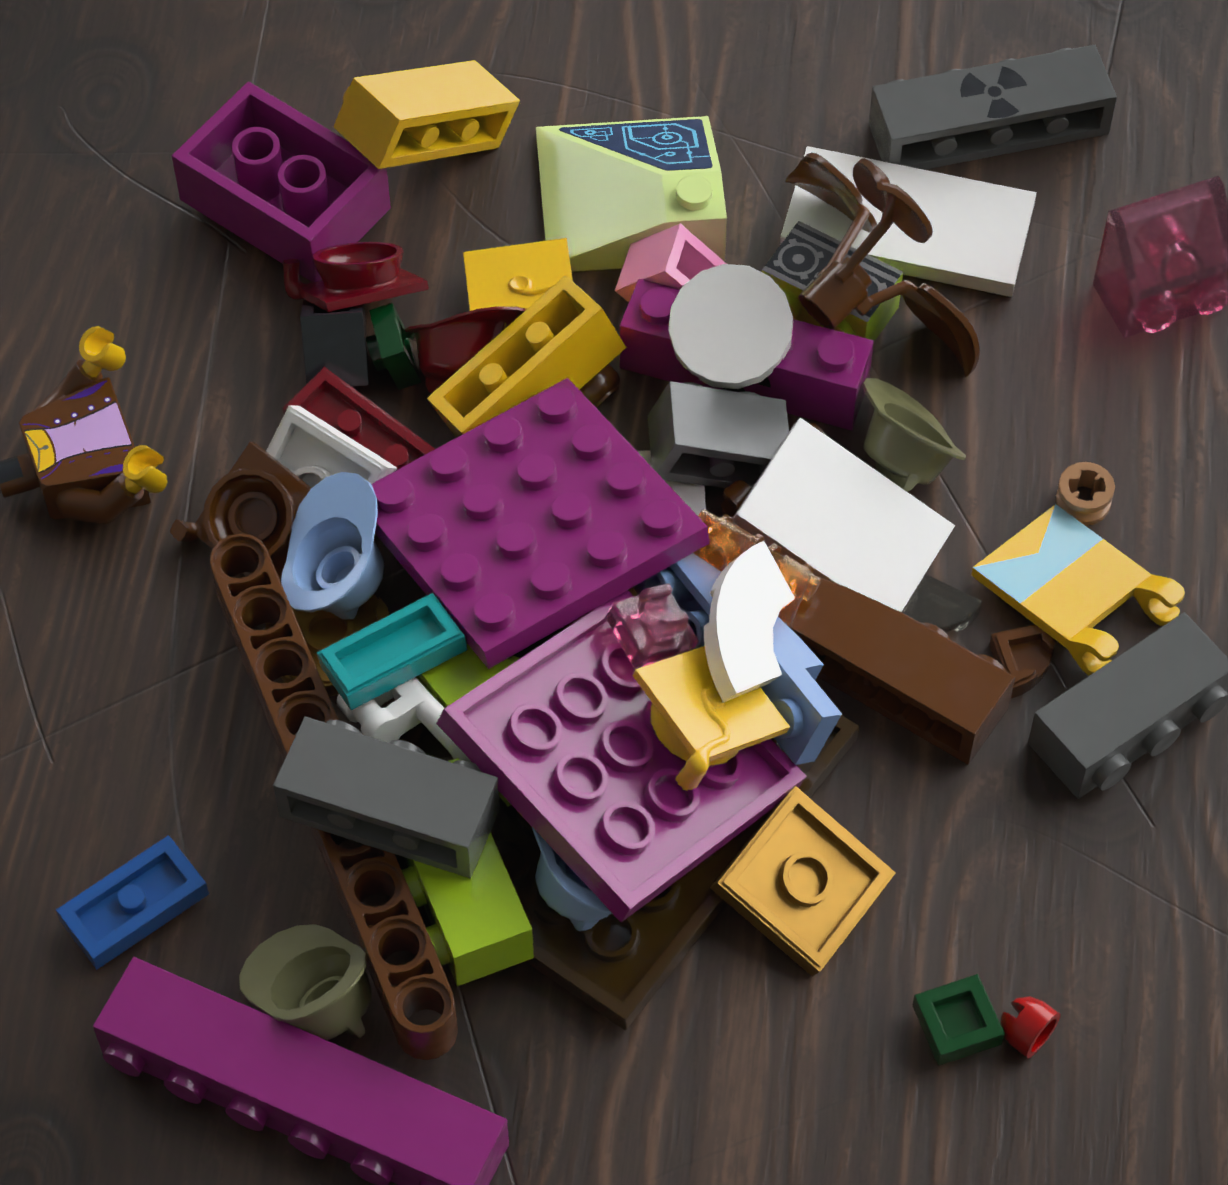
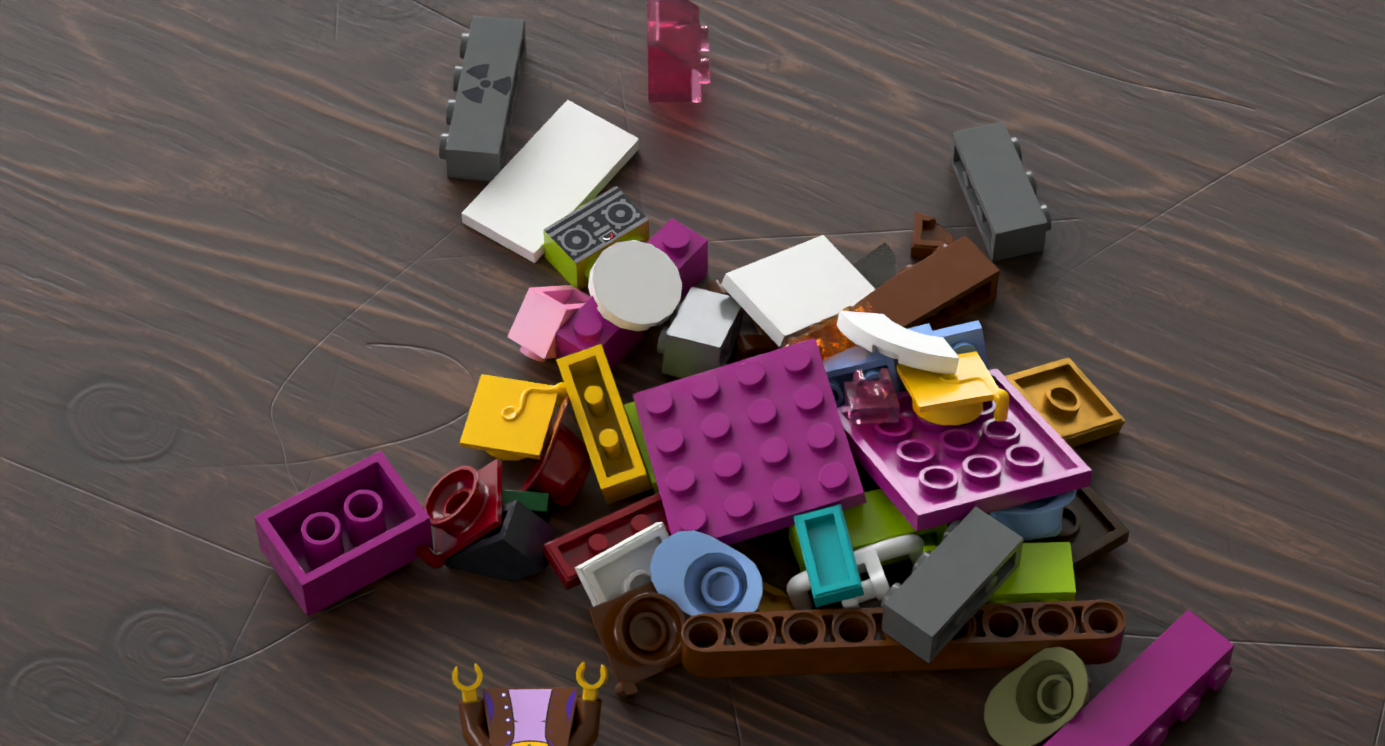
camera: 70 degrees left, 5 degrees down
(425, 113) = (337, 416): yellow brick -> none
(627, 183) = (444, 325): yellowish green slope -> none
(844, 282) = (625, 211): reddish brown plant -> none
(905, 437) = (748, 238): olive piece -> none
(958, 1019) = (1186, 358): dark green plate -> none
(1032, 1025) = (1203, 322): red hinge -> none
(1071, 581) = (891, 190): yellow flag -> none
(1090, 476) = (821, 173): medium nougat bush -> none

